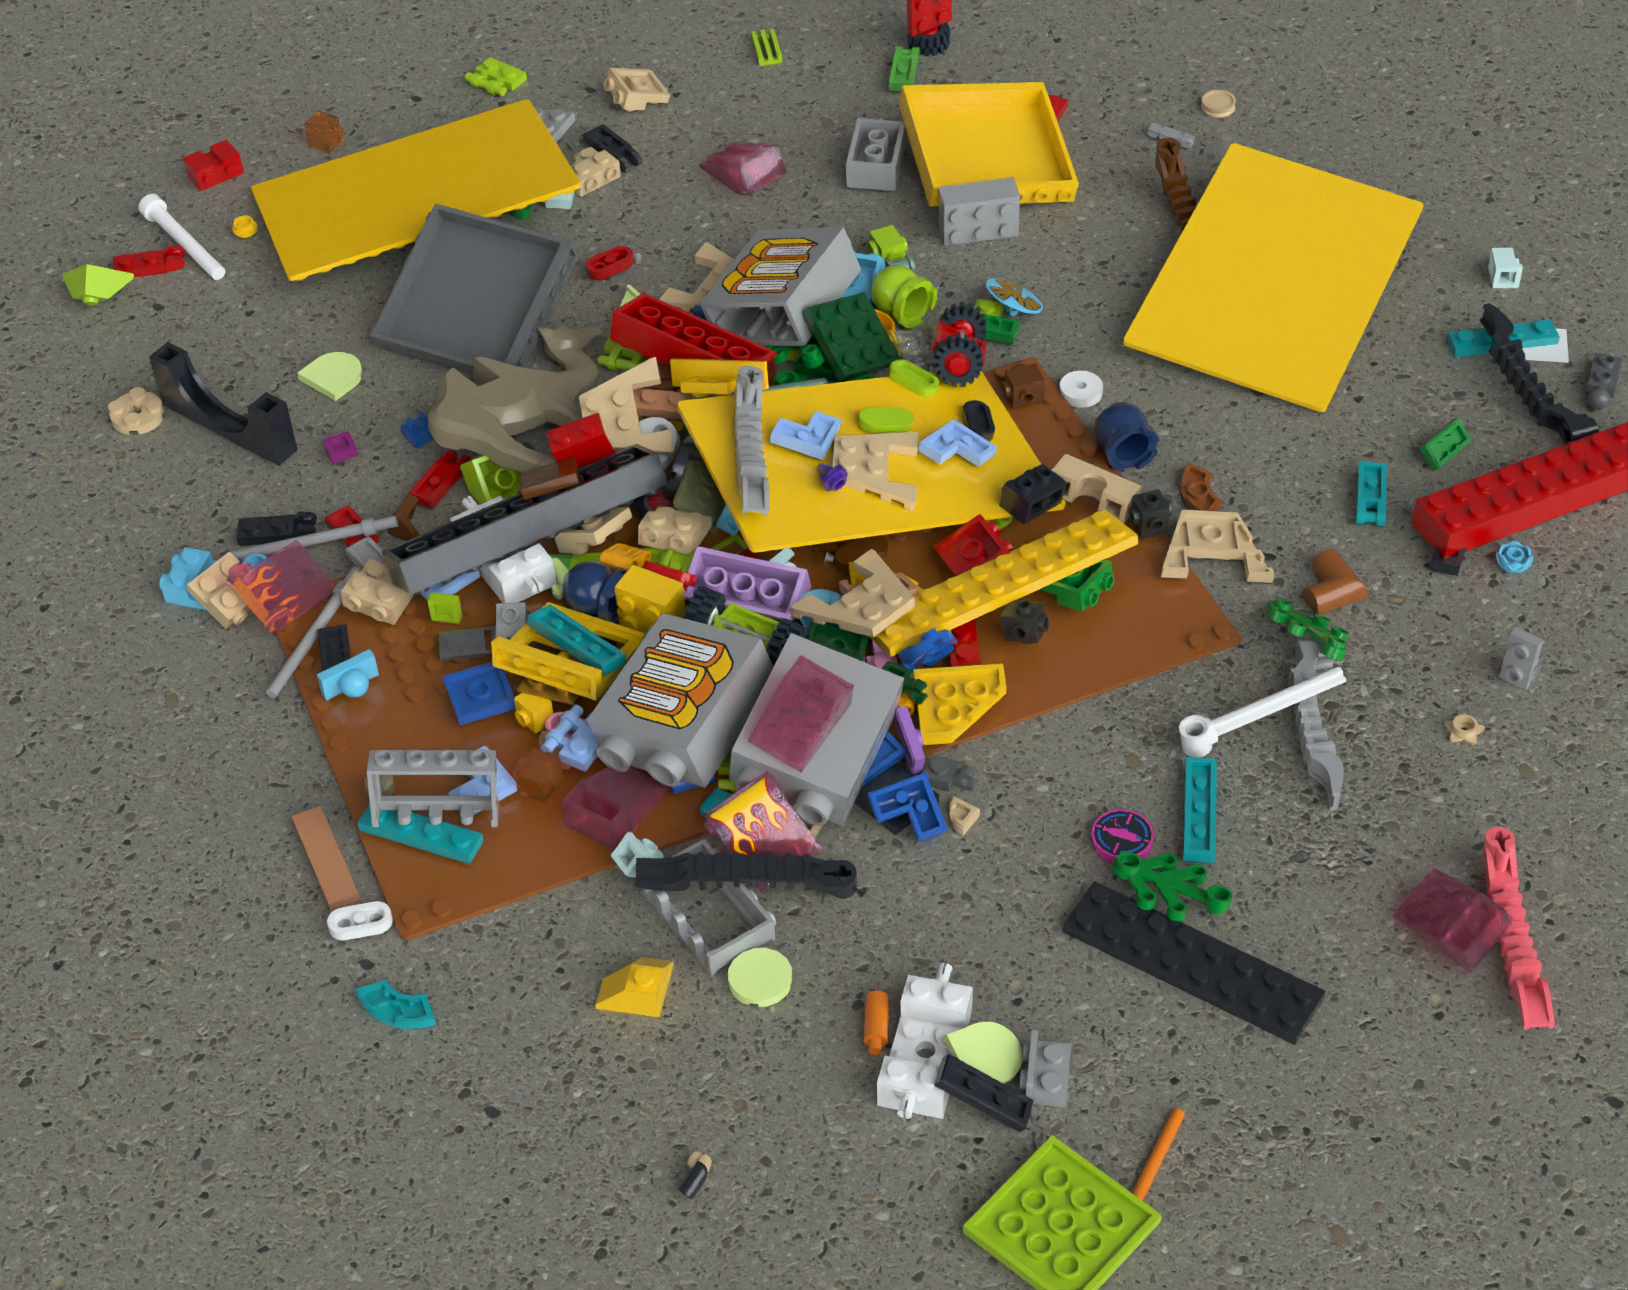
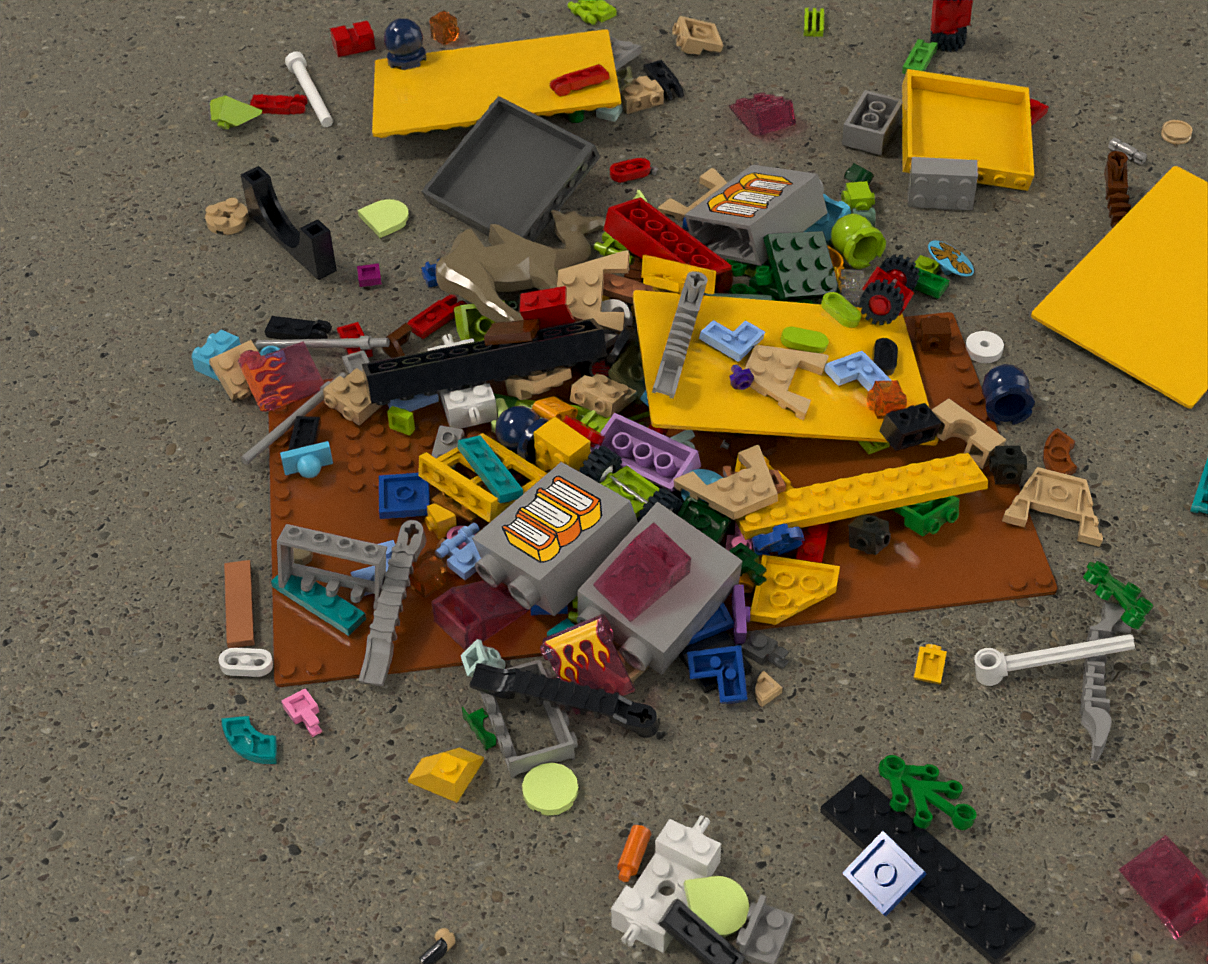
camera: 15 degrees right, 0 degrees up
(244, 226) = (359, 90): yellow plate -> none
(286, 161) = (404, 42): none -> dark blue tile
(446, 956) = (303, 708): none -> bright pink plate
(464, 643) = (405, 452): flat silver piece -> none
(513, 816) = (382, 634): none -> light grey piece
(520, 166) = (579, 79): none -> red hinge
(649, 925) = (475, 722): none -> green piece
(879, 218) = (858, 174): none -> dark green plate
(972, 545) = (846, 460): red plate -> none
(997, 467) = (886, 397): none -> clear orange brick
(1122, 832) = (898, 737): tile -> none
(1132, 747) = (930, 664): none -> yellow bracket
(1154, 977) = (884, 873): none -> plate
(1200, 810) = (973, 733): teal plate -> none
(1338, 585) = (1156, 563): dark orange brick -> none

